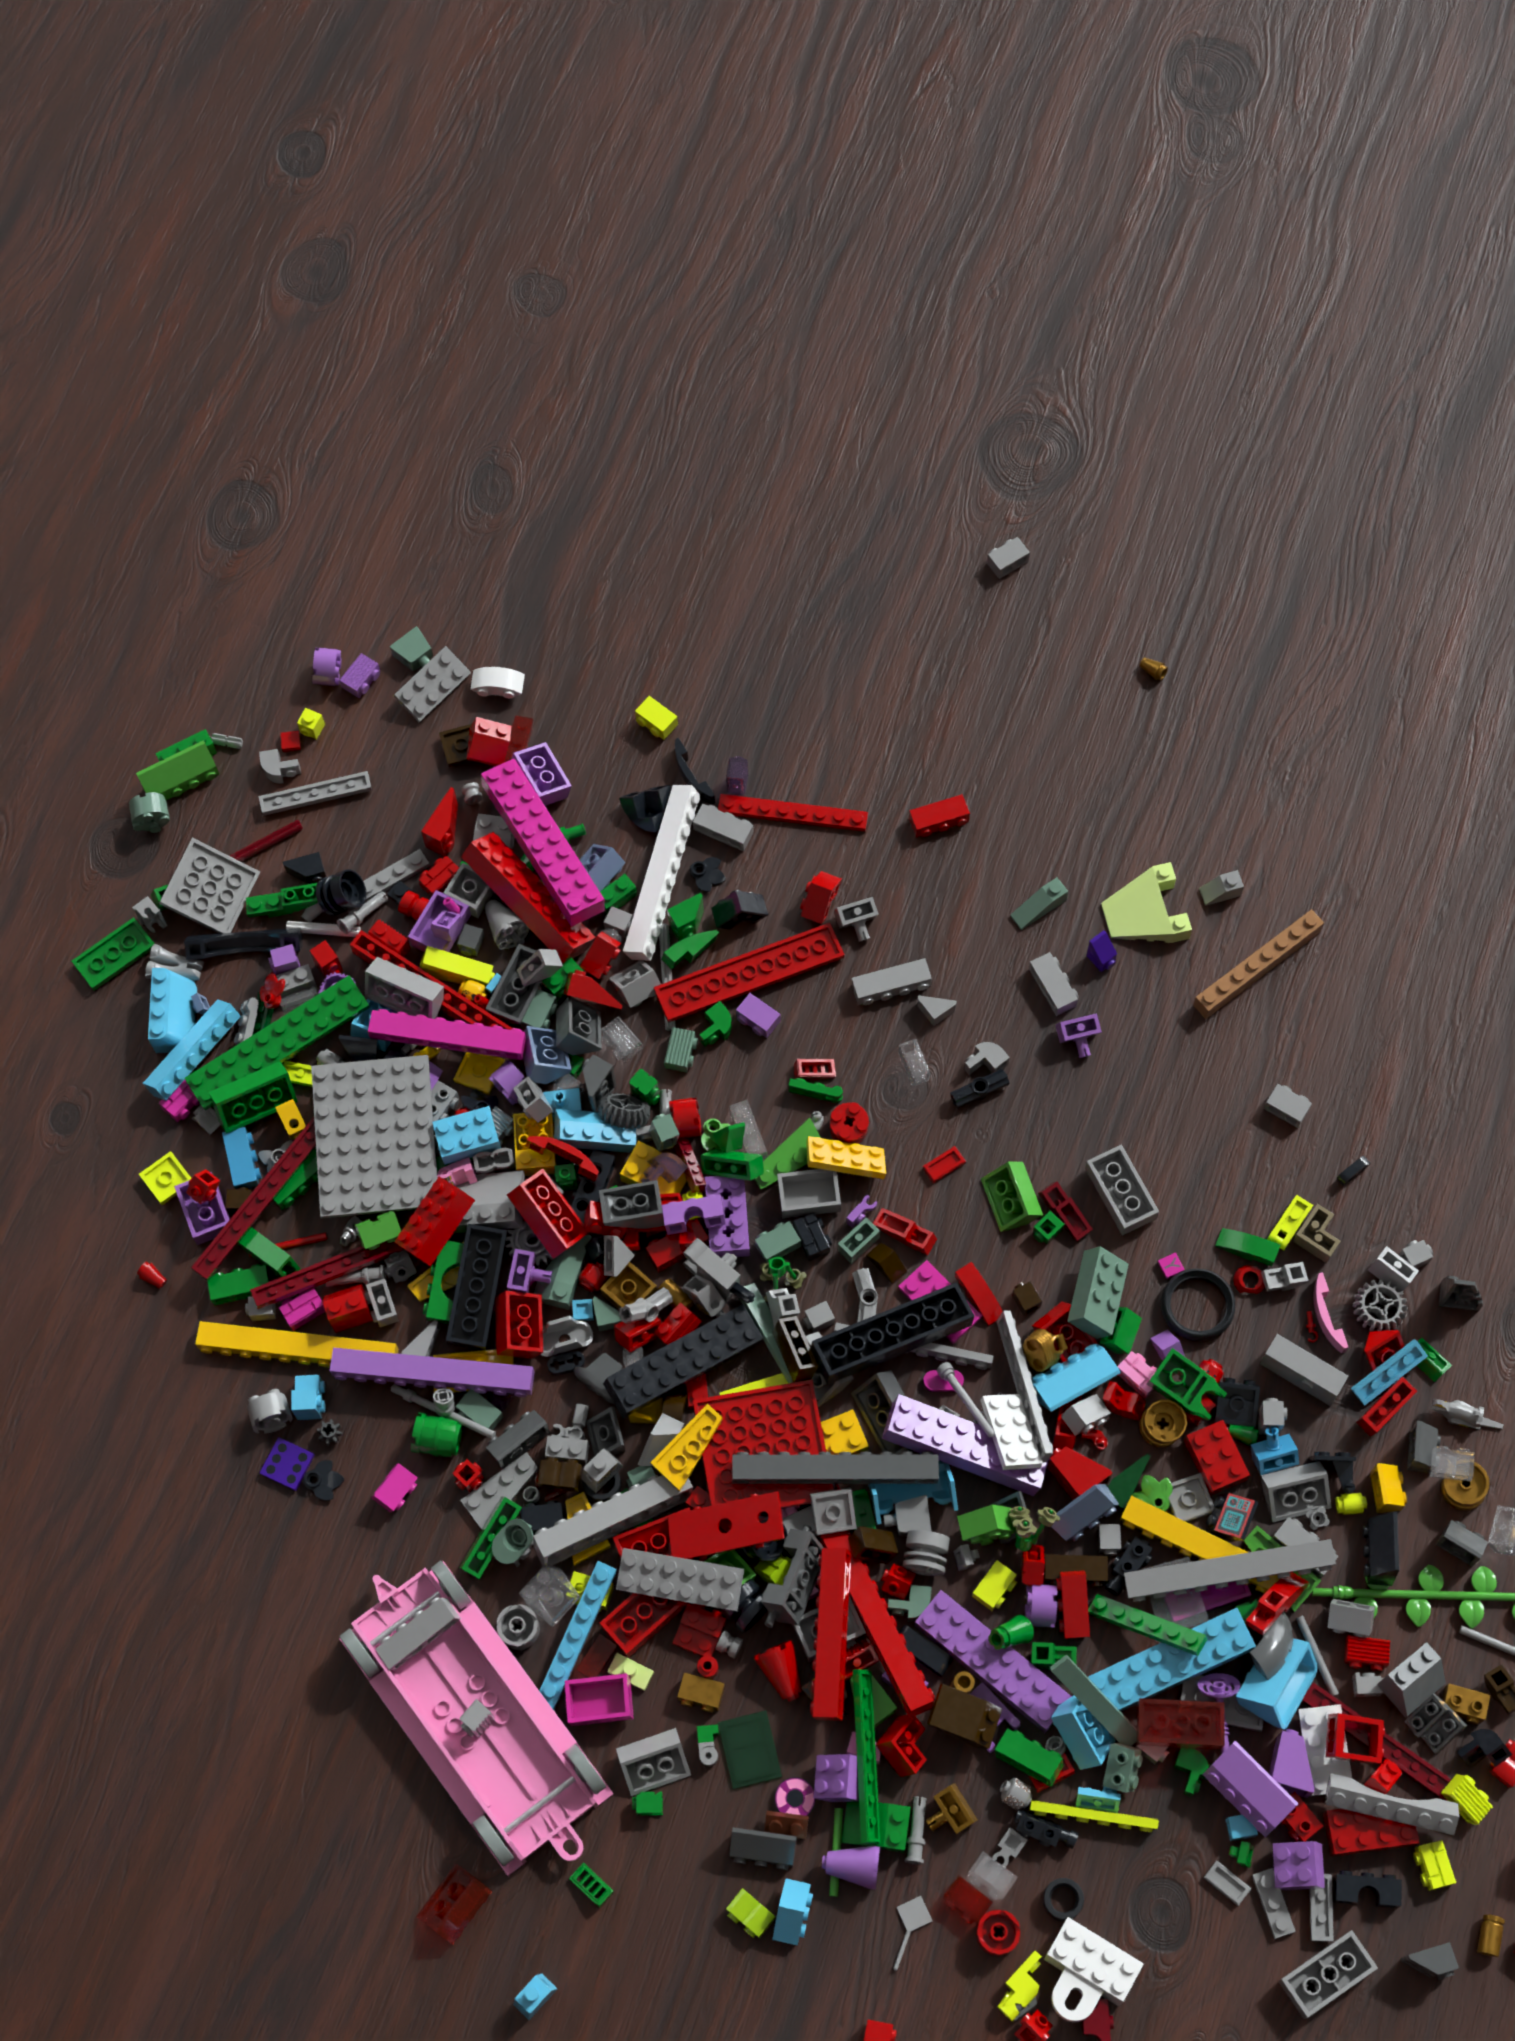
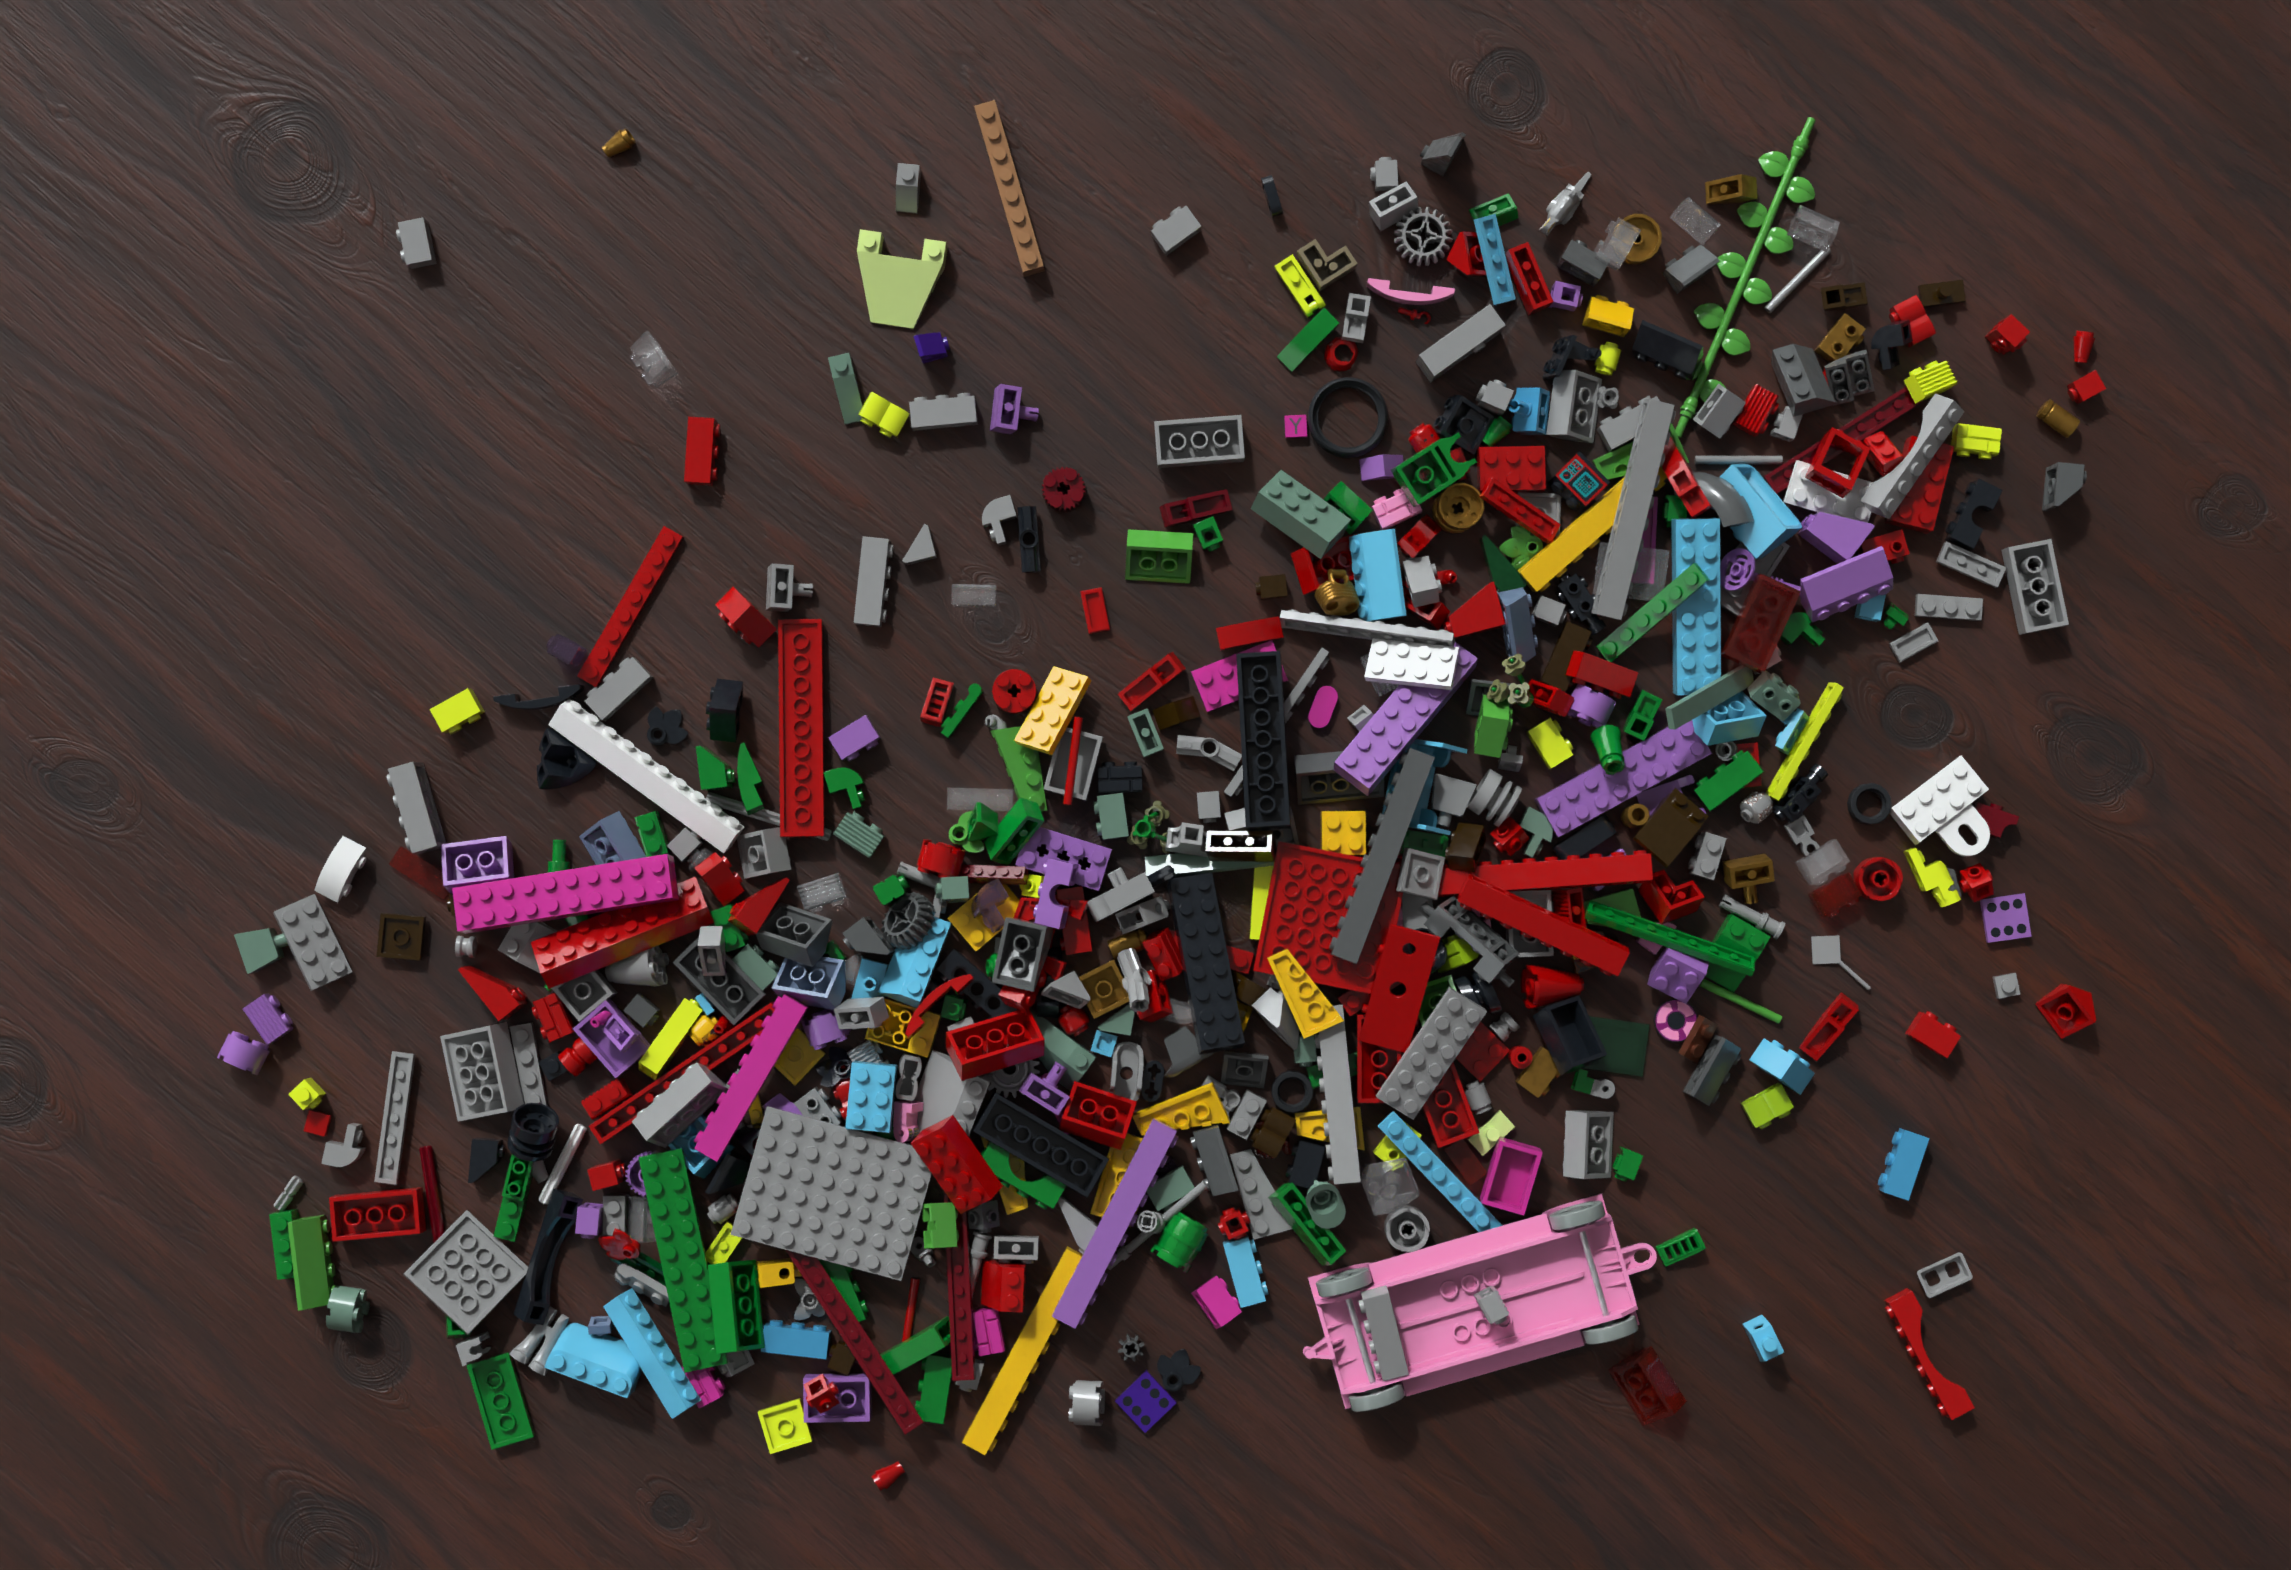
camera: 65 degrees left, 20 degrees up
(233, 807) = (377, 1214): none -> red brick
(307, 1397) = (1086, 1357): medium azure brick -> none
(356, 917) = (566, 1124): light grey pin -> none
(377, 841) = (482, 1071): none -> light grey slope
(430, 1503) = (1245, 1271): none -> medium azure brick
(488, 741) = (413, 906): red slope -> none
(529, 1492) = (1273, 1168): light grey hinge -> none
(552, 1400) = (1187, 1110): none -> yellow wing
(568, 715) = (416, 807): none -> light grey brick
(600, 1470) = (1285, 1087): light grey torso -> none
(657, 1645) = (1478, 1097): none -> light grey brick
(743, 1701) = (1569, 1035): none -> black piece
(810, 1187) = (1073, 758): none -> red bar
(845, 1943) = (1829, 1026): none -> red slope
(854, 1865) = (1764, 990): medium lavender cone -> none
(858, 1213) = (1116, 722): medium lavender plate -> none
(947, 1373) = (1320, 700): light grey piece -> none
(954, 1766) = (1707, 855): none -> light grey brick
(996, 753) = (652, 359): none -> clear slope
(1031, 938) = (883, 415): none -> neon yellow brick
(1034, 1089) = (1063, 477): none -> dark red brick
(1184, 1475) = (1519, 510): none -> red plate
(1298, 1865) = (1929, 569): medium lavender brick -> none
(1389, 1439) = (1564, 289): none -> medium lavender brick

